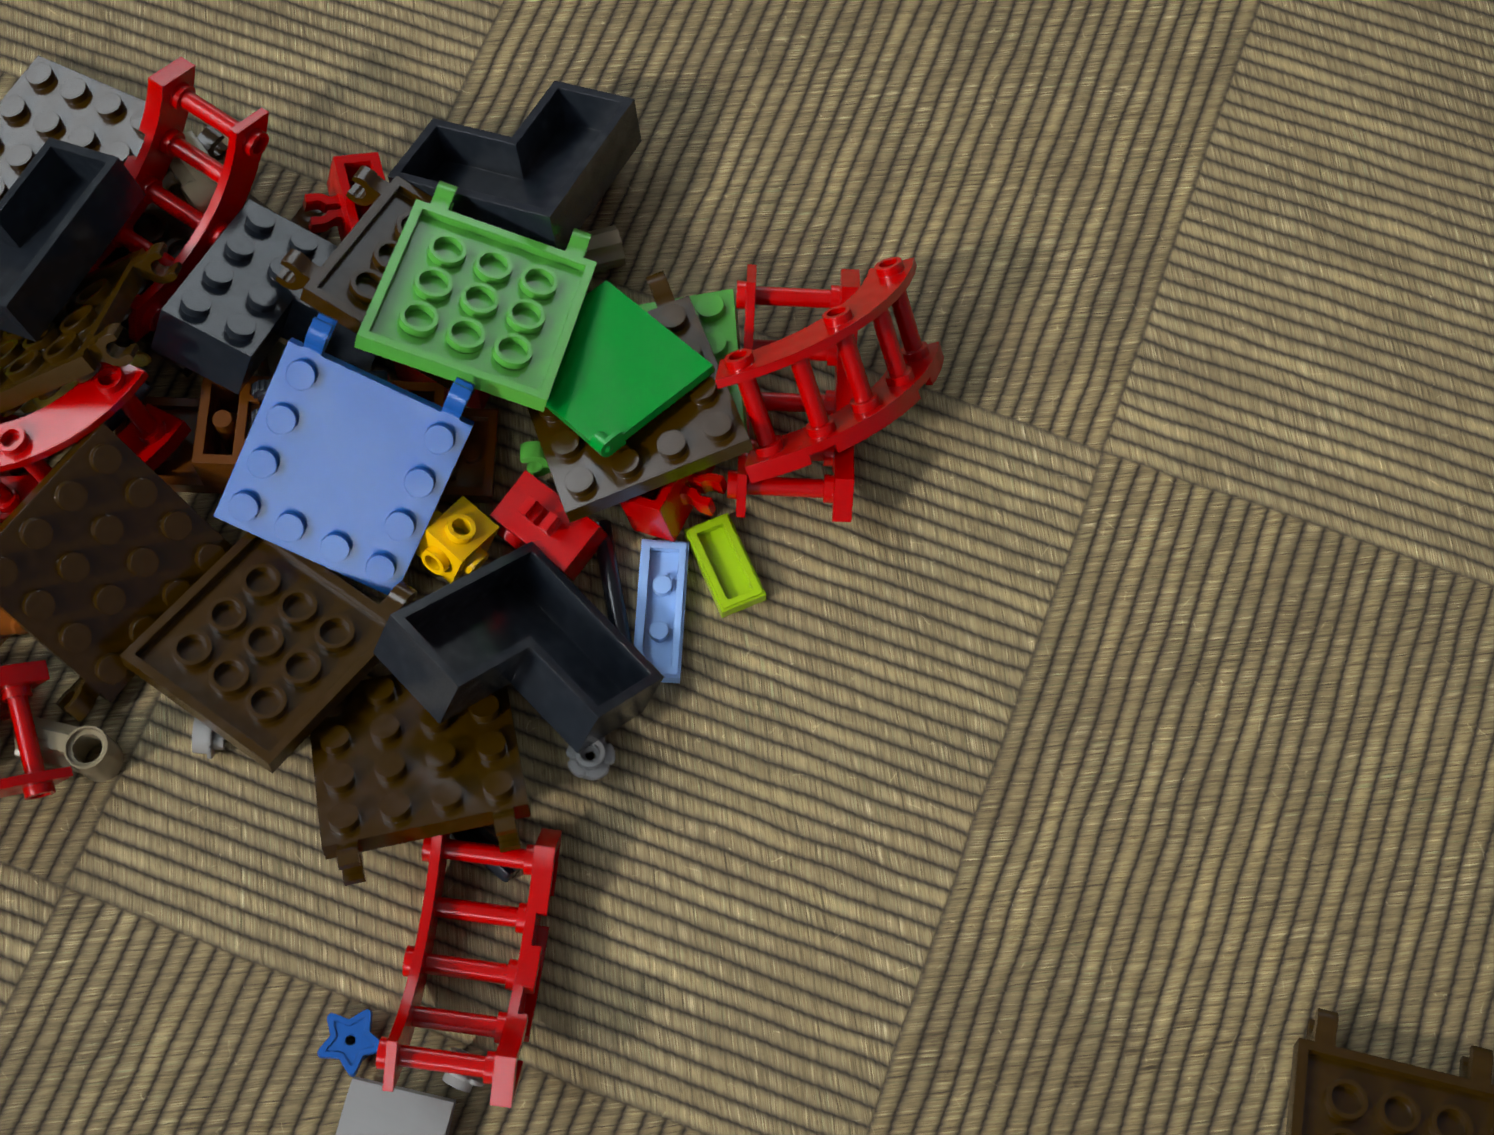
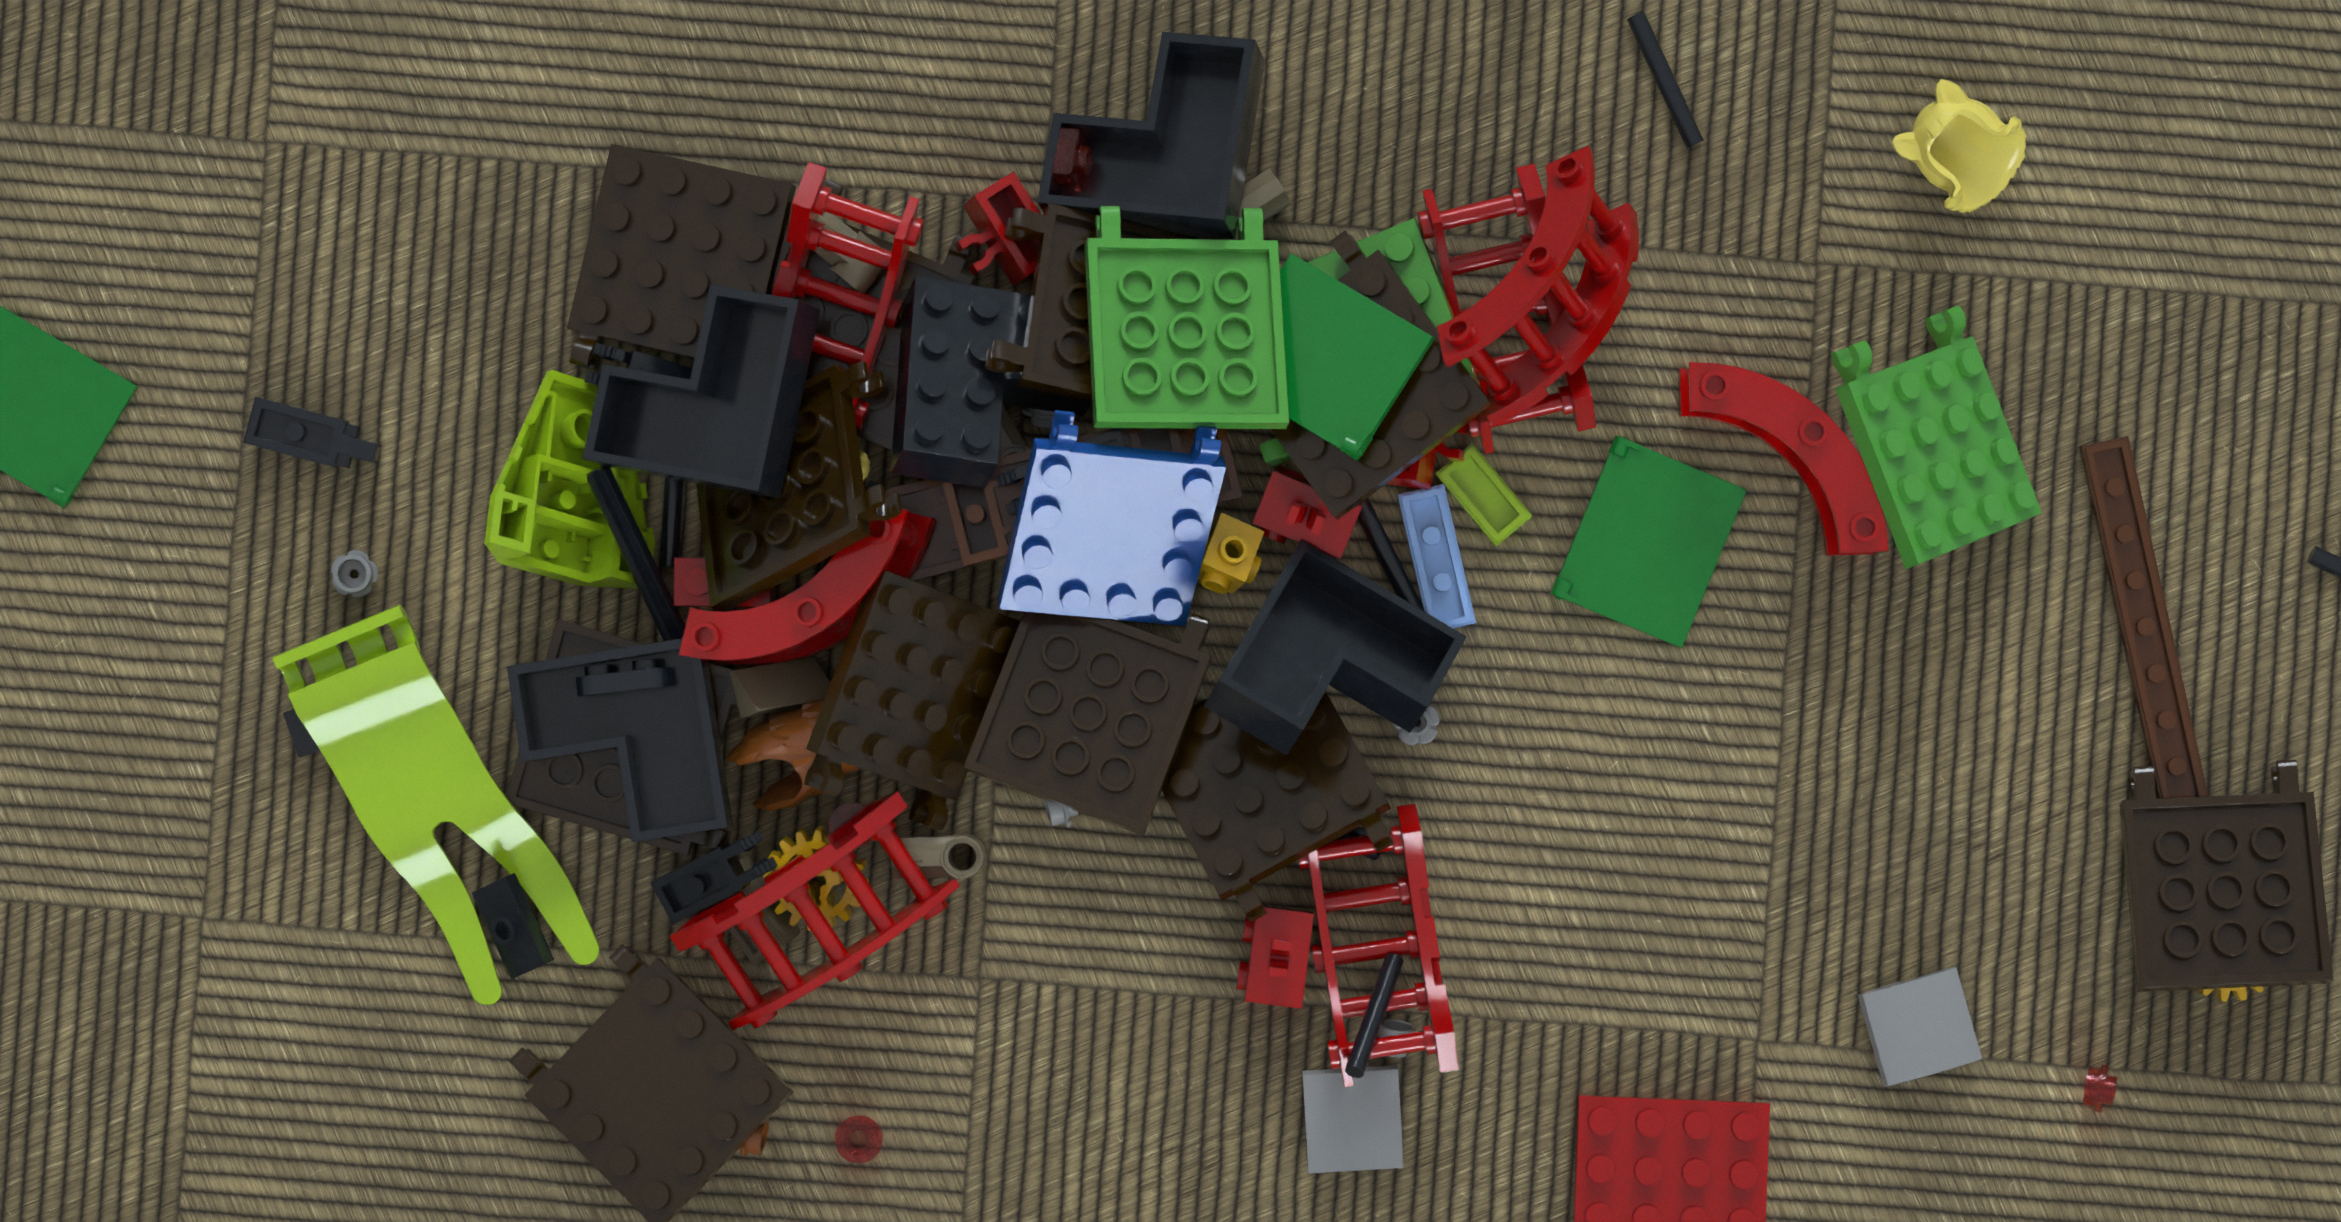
camera: 15 degrees left, 20 degrees up
(349, 1055) = (1292, 1028): blue plate -> none
(368, 946) = (1276, 957): none -> red brick
(436, 157) = (1072, 159): none -> clear red plate
(440, 1026) = (1374, 1015): none -> black bar
(872, 654) = (1648, 541): none -> green piece
(1002, 257) = (1665, 79): none -> black bar
(1051, 581) = (1804, 438): none -> red fence
(1182, 622) = (1935, 443): none -> bright green plate
(1271, 377) = (1963, 148): none -> light yellow hair
(1355, 867) = (2143, 619): none -> reddish brown tile

